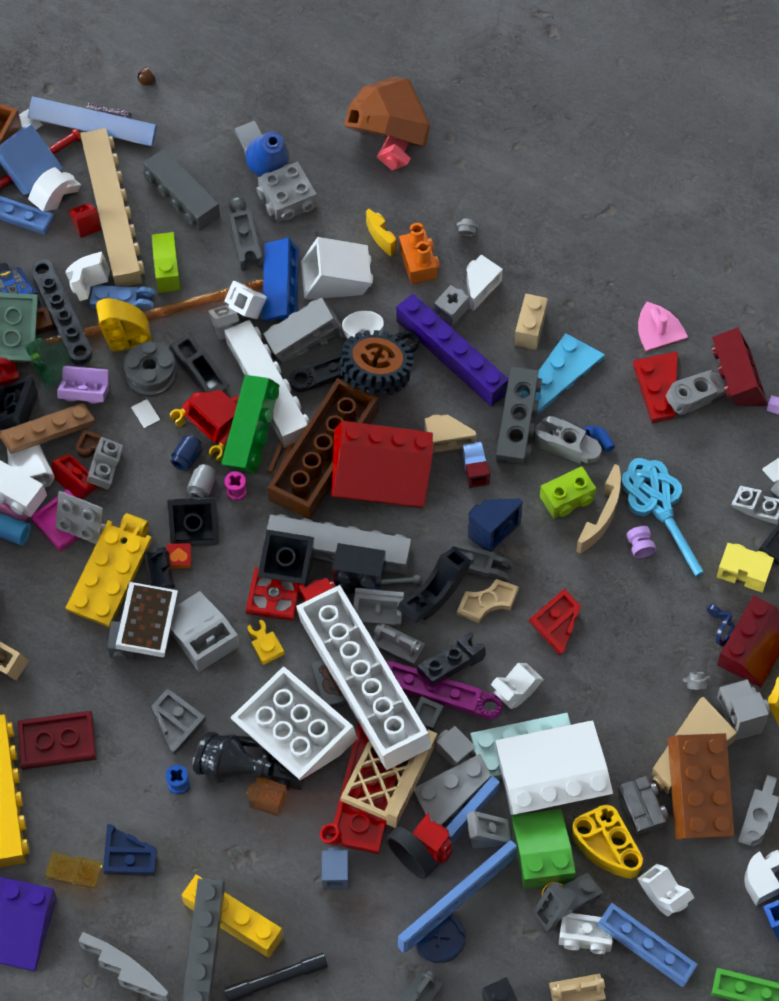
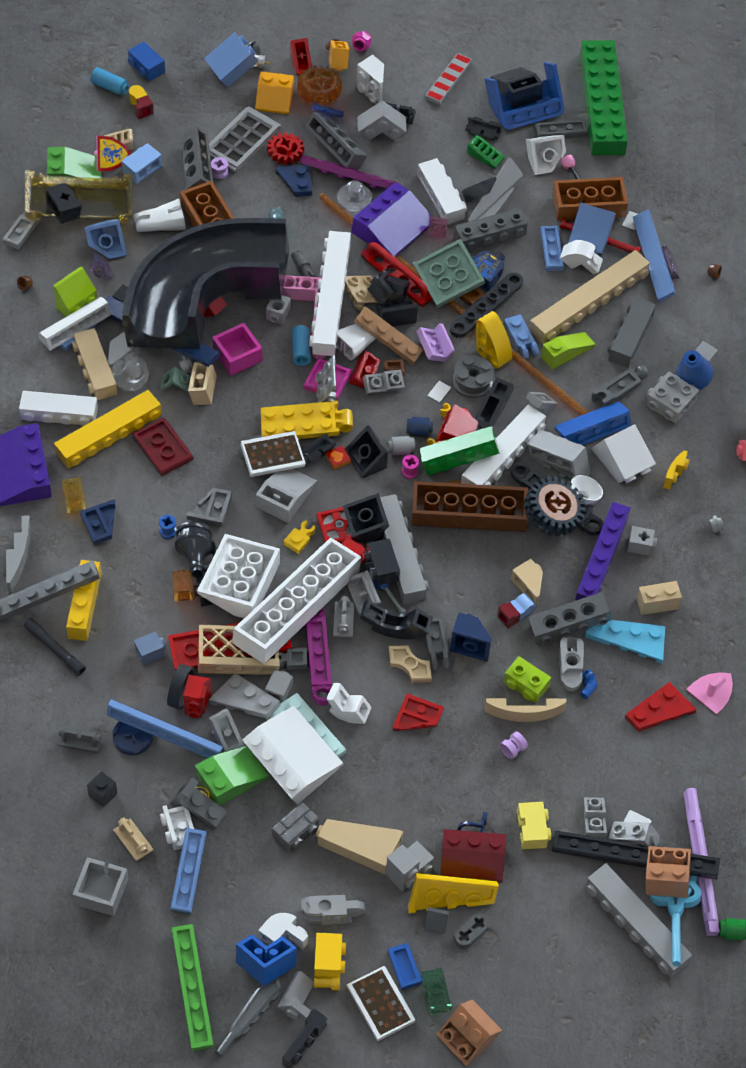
camera: 60 degrees right, 5 degrees down
(48, 359) = (441, 311): clear green brick -> none
(85, 219) = (568, 284): red slope -> none
(86, 273) = (523, 304): white brick -> none
(245, 300) = (560, 408): white brick -> none
(330, 830) = (167, 628): red hinge -> none
(381, 464) = (473, 544): red slope -> none
(418, 255) = (670, 501): orange brick -> none
(451, 660) = (346, 656): black plate -> none
(476, 804) = (239, 716): medium blue tile -> none
(482, 279) = (673, 551): white slope -> none
(598, 843) = (256, 808): yellow beam -> none
(648, 496) = (563, 744): medium azure piece -> none
(664, 890) = (236, 865): white brick -> none
(695, 391) = (679, 743): light grey piece -> none
(696, 680) = (418, 827): light grey plate -> none
(700, 786) = (325, 854): dark orange brick -> none
(738, 369) = (703, 755): dark red slope -> none

